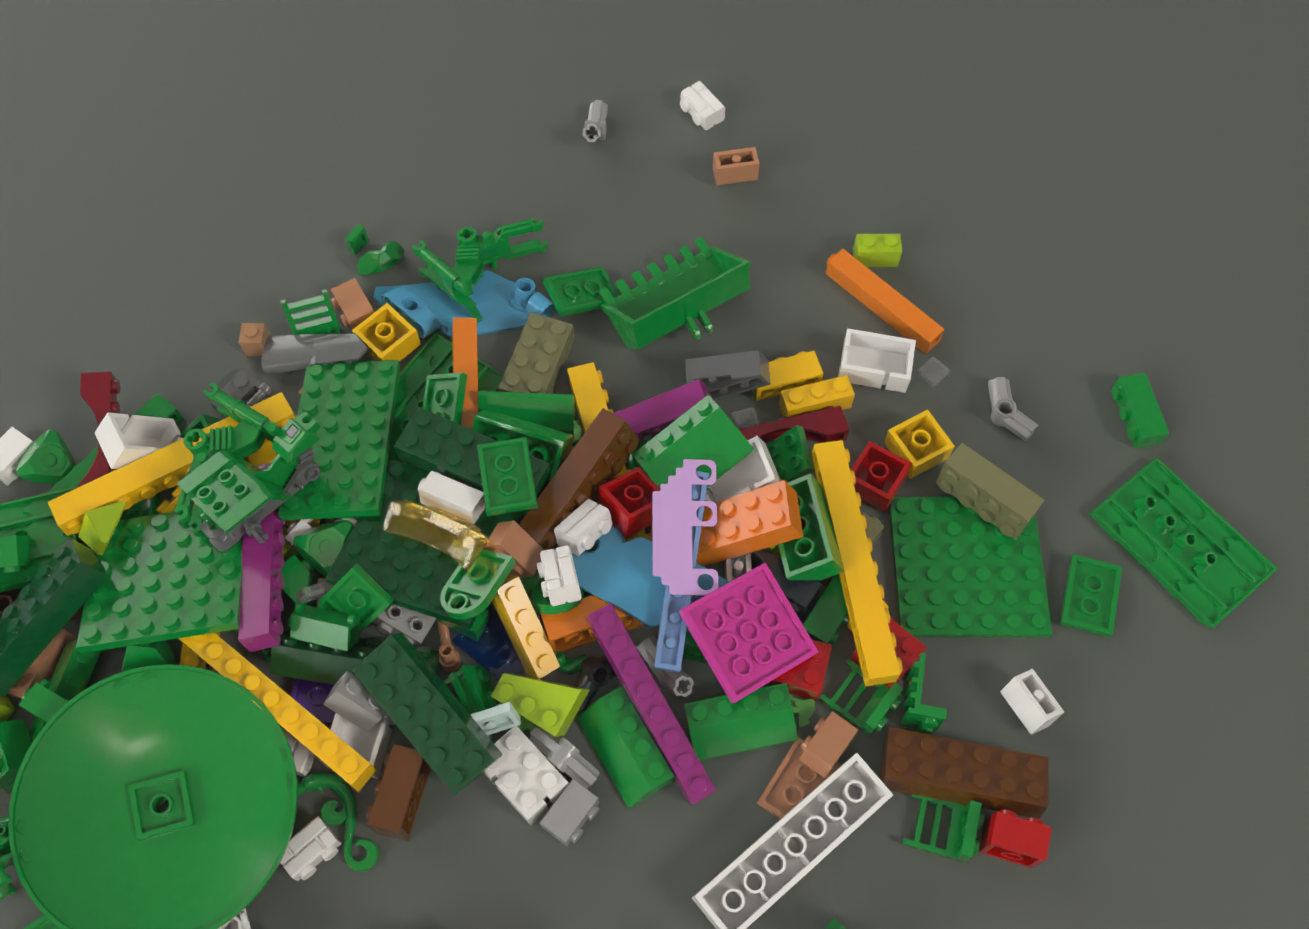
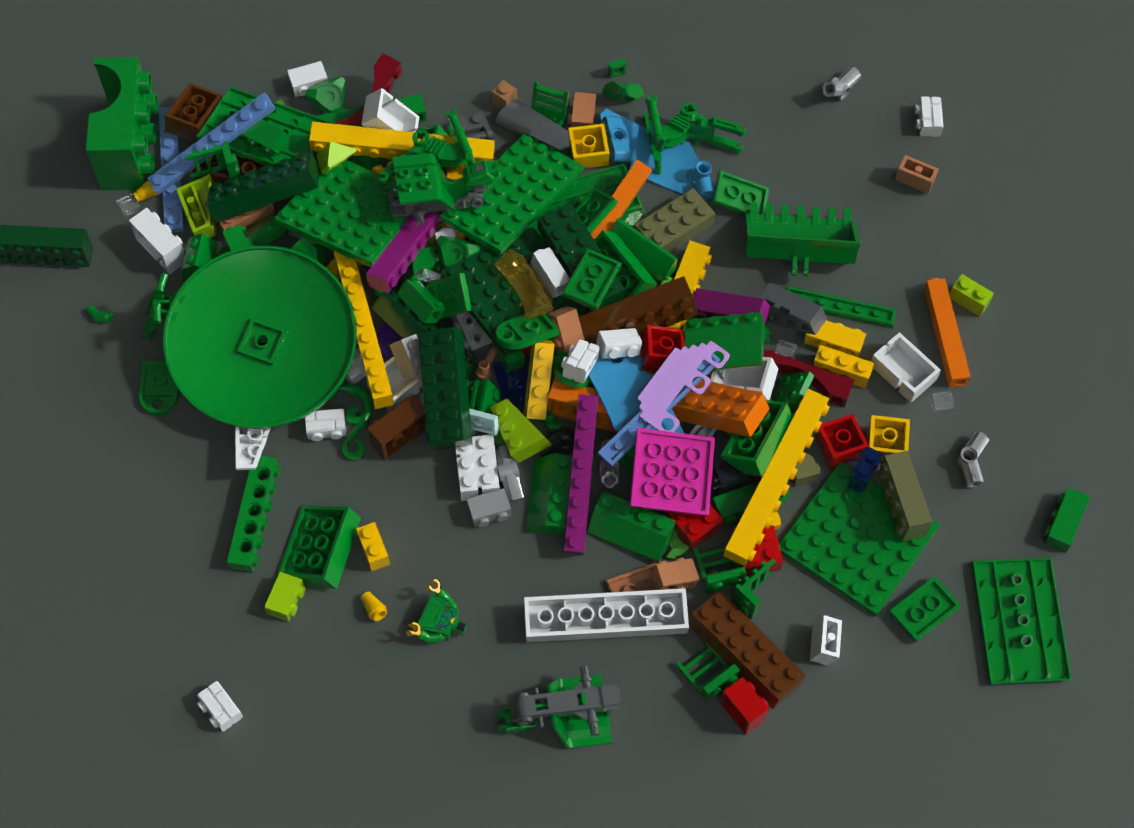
camera: 35 degrees right, 0 degrees up
(773, 336) = (849, 308): none -> green tile
(926, 491) = (864, 470): none -> clear blue brick

